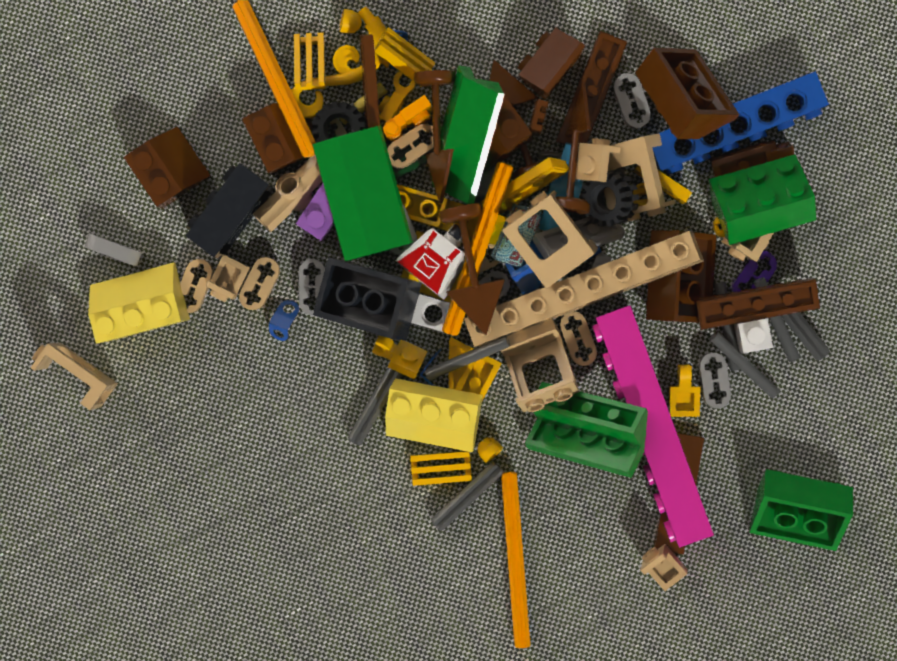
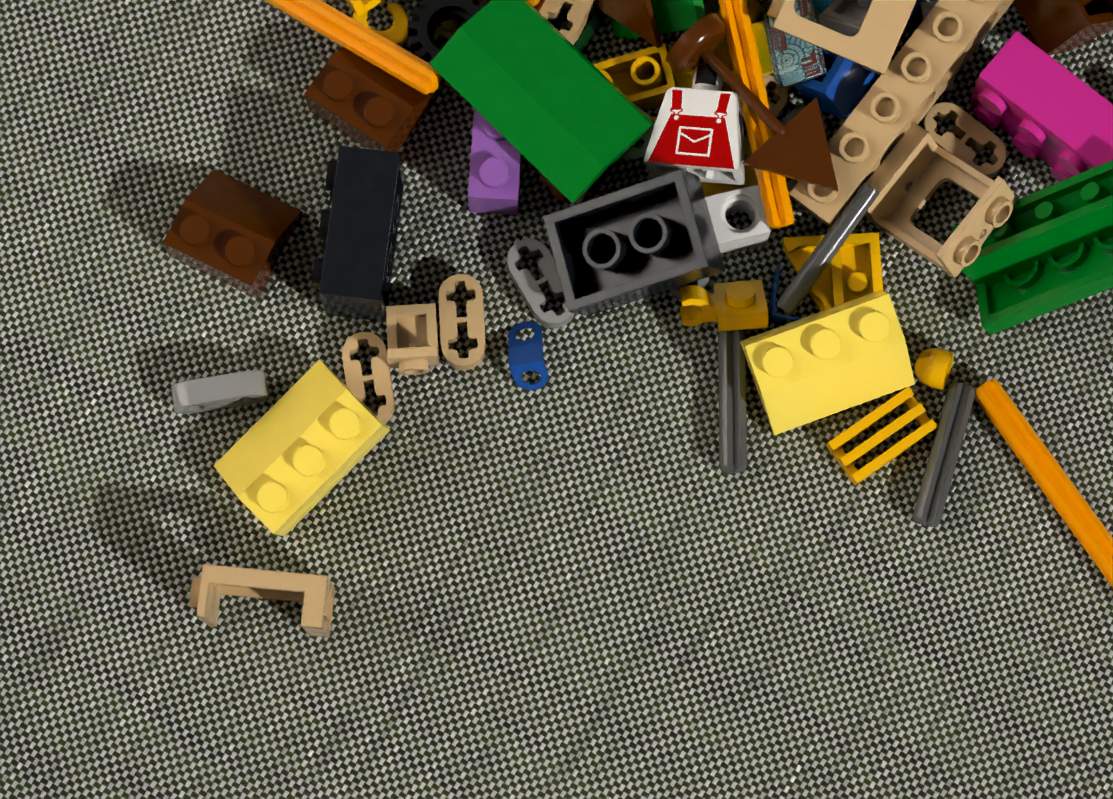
camera: 30 degrees left, 10 degrees down
(291, 194) = (436, 162): tan piece -> none

